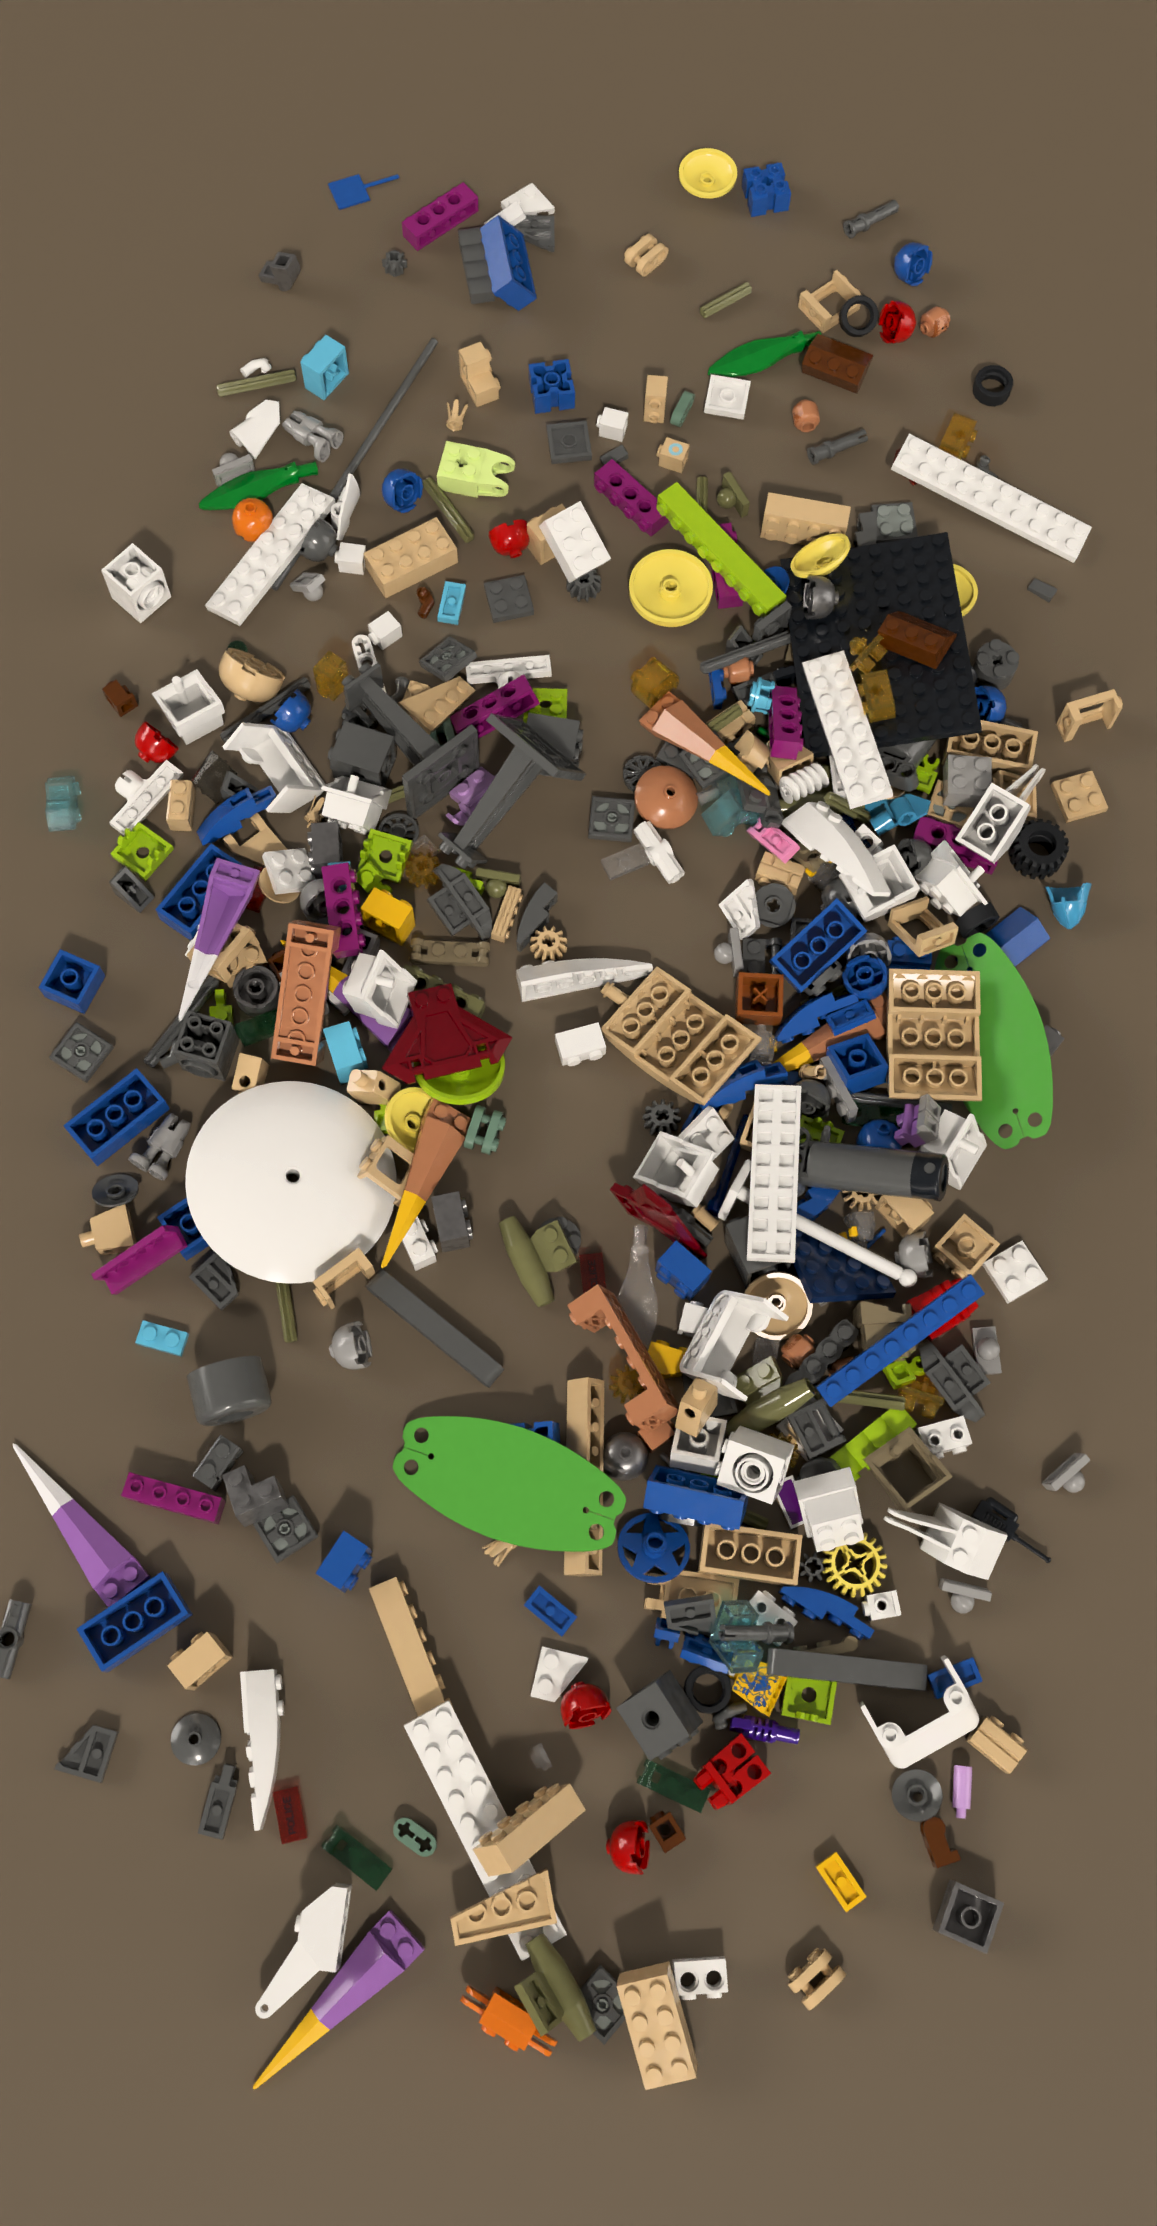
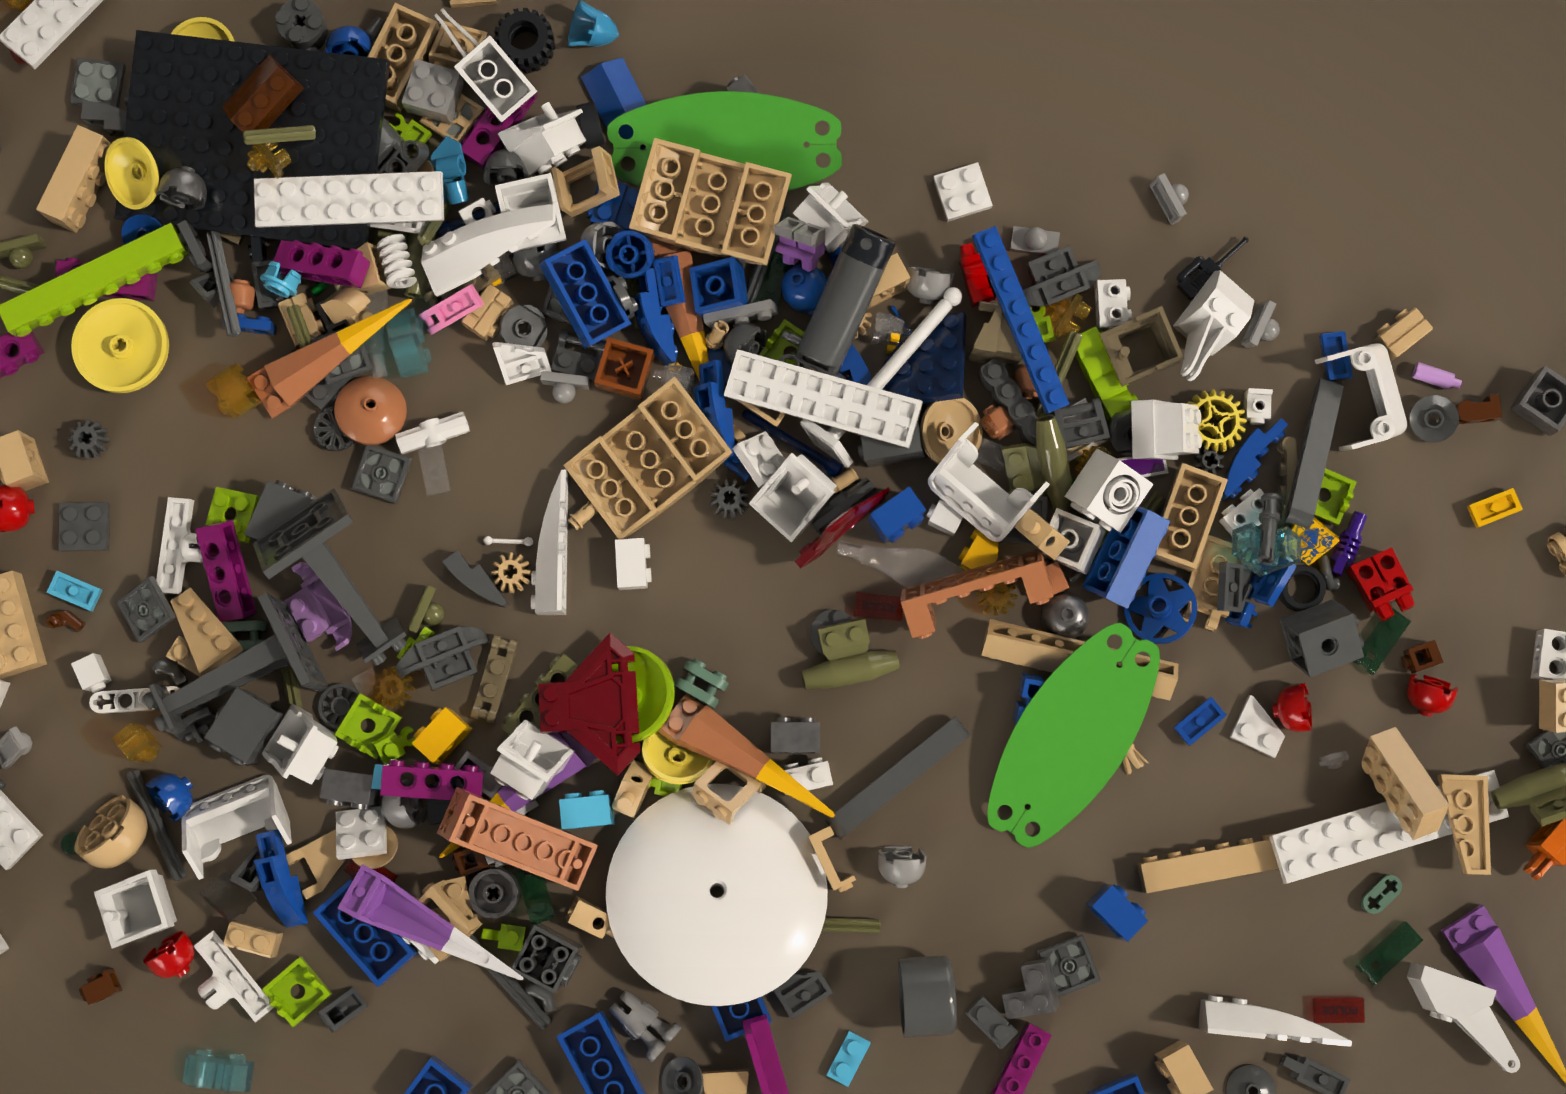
camera: 75 degrees left, 10 degrees up
(312, 816) = (299, 794): tan piece -> none
(506, 914) = (465, 610): tan piece -> none
(574, 542) = (45, 436): white brick -> none
(580, 954) = (527, 541): none -> white hinge
(756, 801) = (410, 317): dark grey plate -> none
(877, 695) = (309, 151): clear yellow brick -> none
(886, 656) = (281, 134): none -> olive axle
(964, 1247) = (931, 233): tan plate -> none

